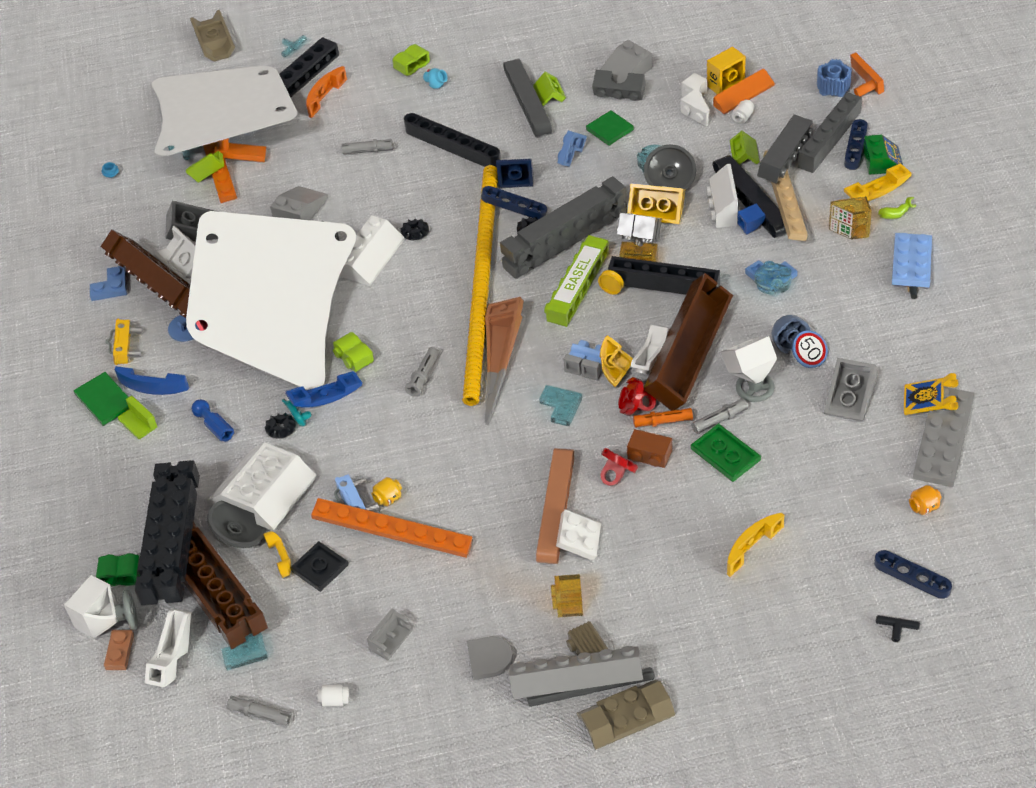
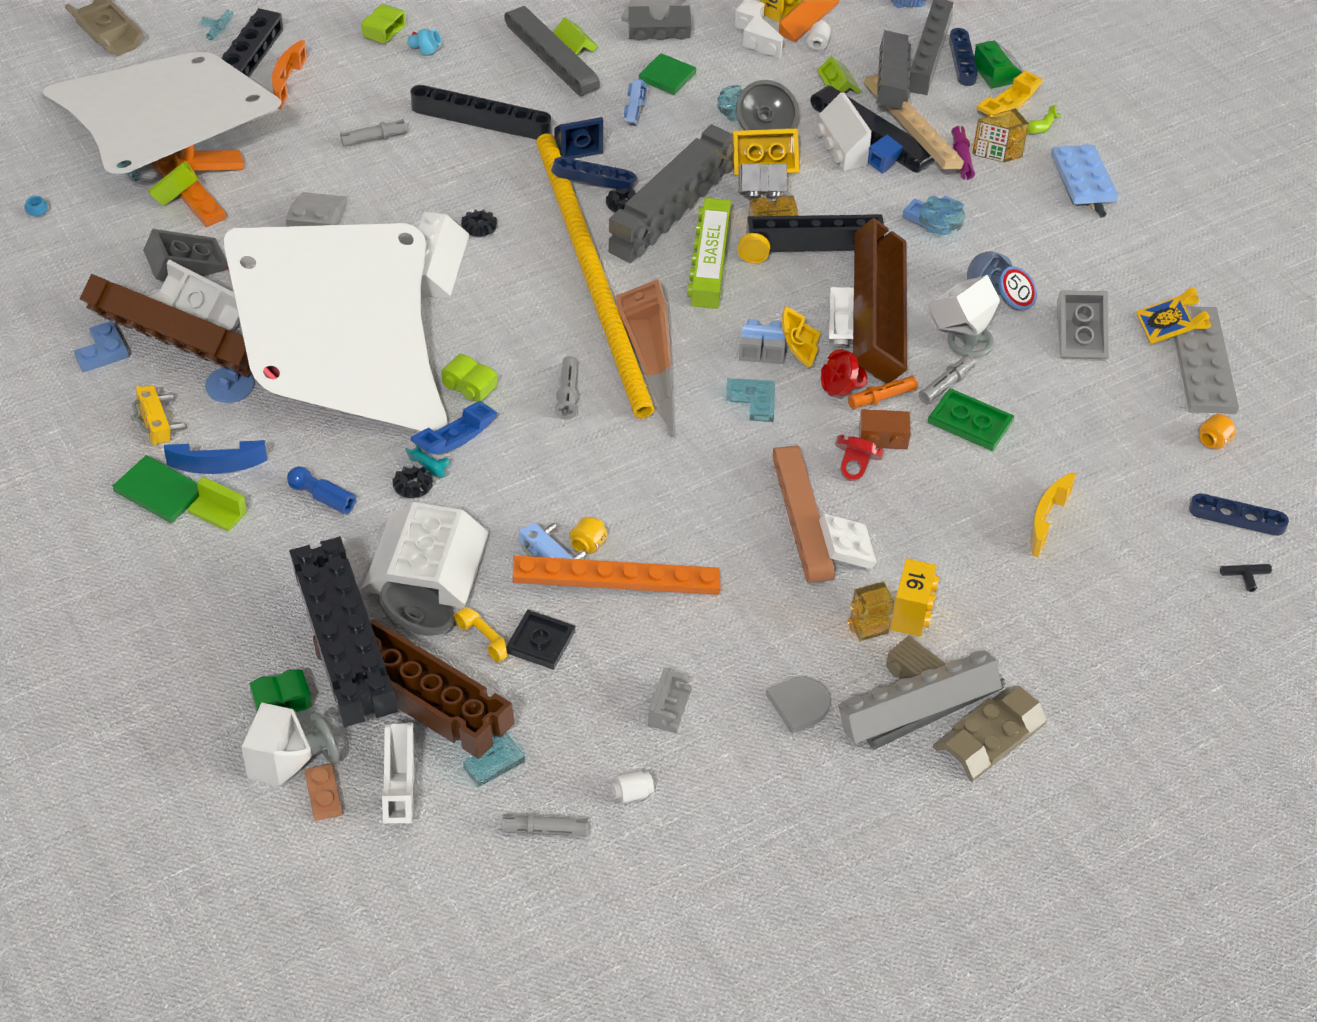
camera: 25 degrees left, 0 degrees up
(606, 591) = (915, 597): none -> yellow brick
(818, 221) = (961, 146): none -> magenta pin

